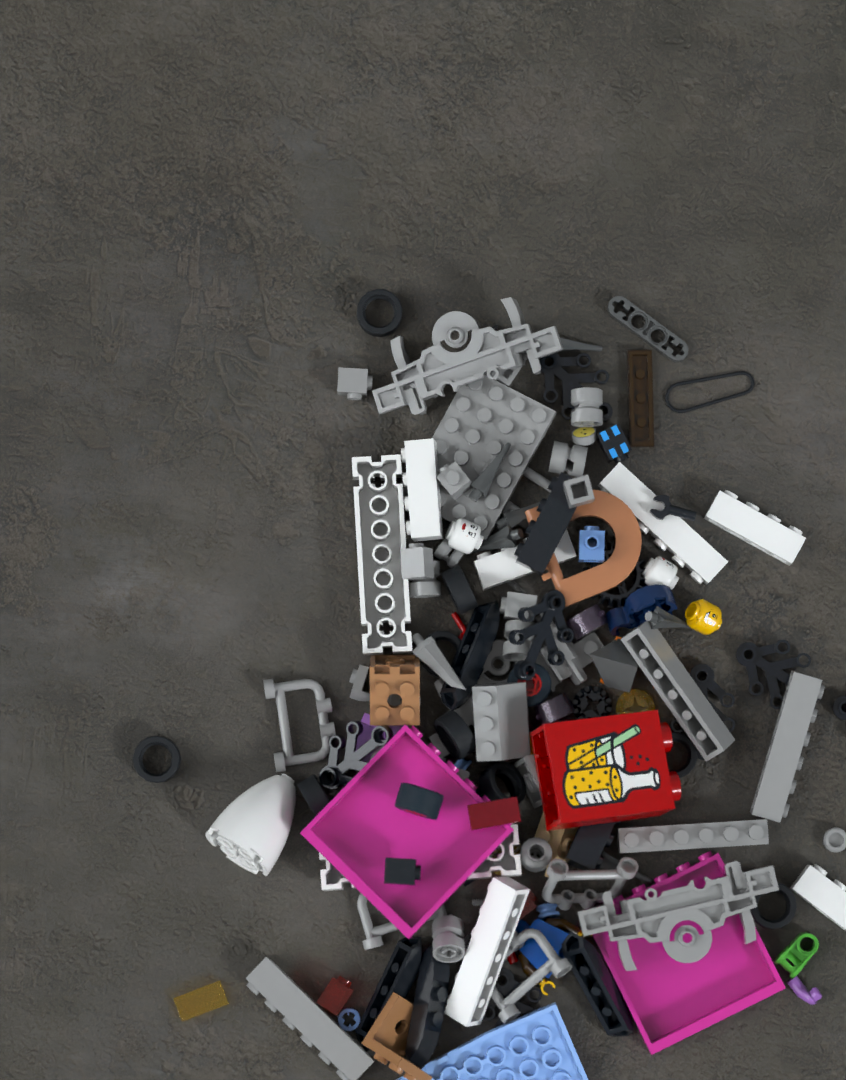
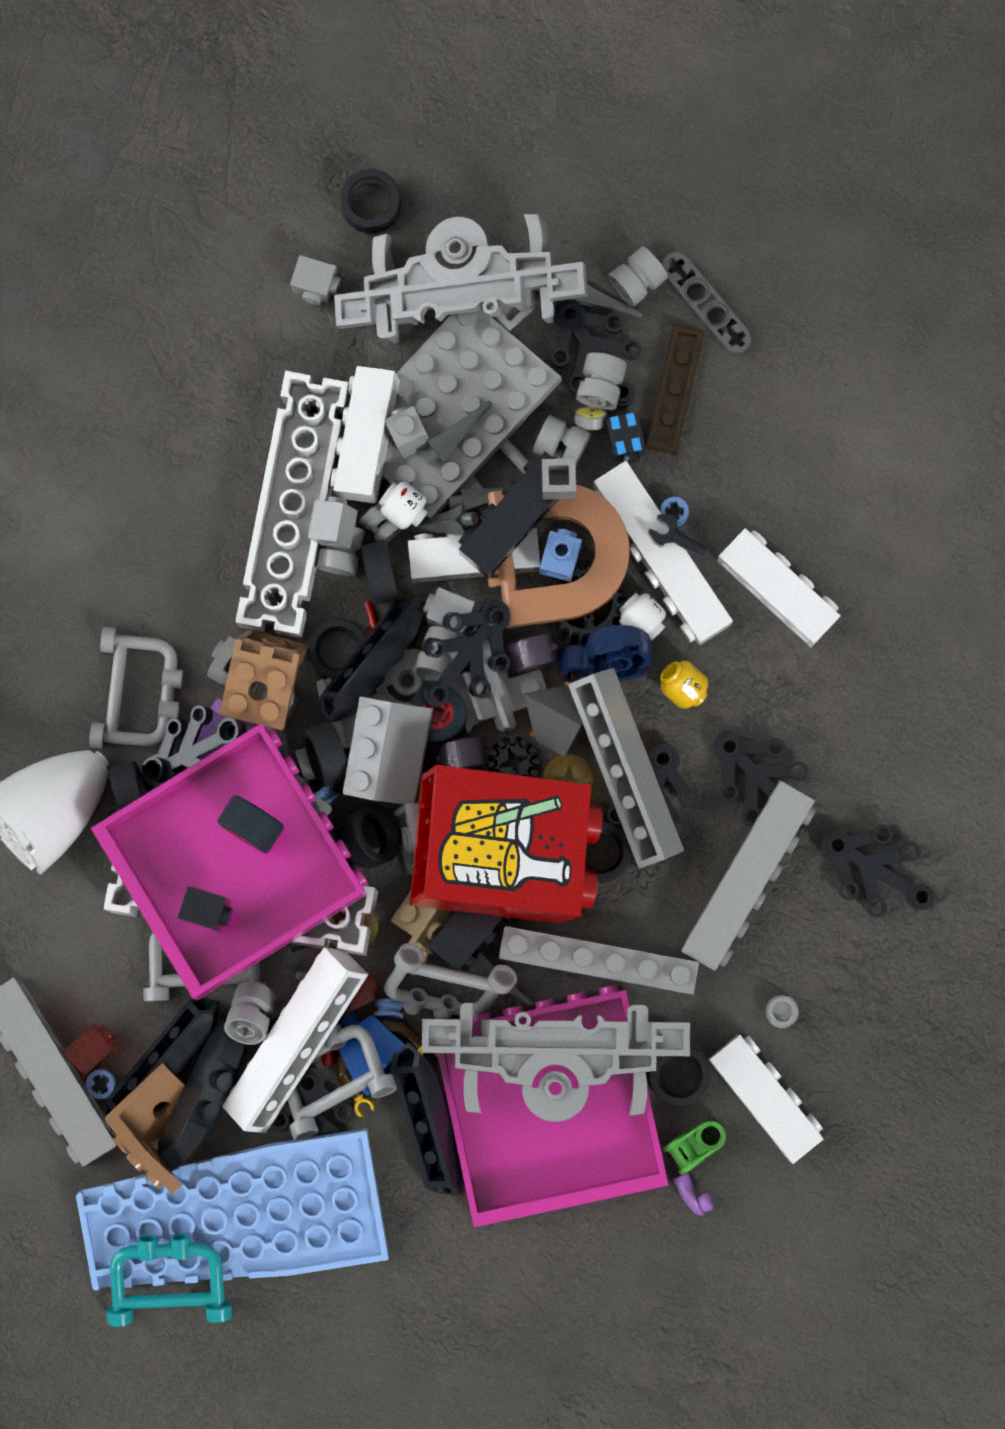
camera: 20 degrees right, 0 degrees up
(431, 655) = (322, 647): light grey bar -> none
(494, 813) = (344, 864): dark red tile -> none
(539, 847) = (390, 922): light grey head -> none
(591, 323) = (642, 273): none -> light grey wheel
(661, 619) = (628, 672): dark grey piece -> none
(667, 483) = (681, 505): none -> medium blue bush
(706, 379) = (764, 385): black piece -> none

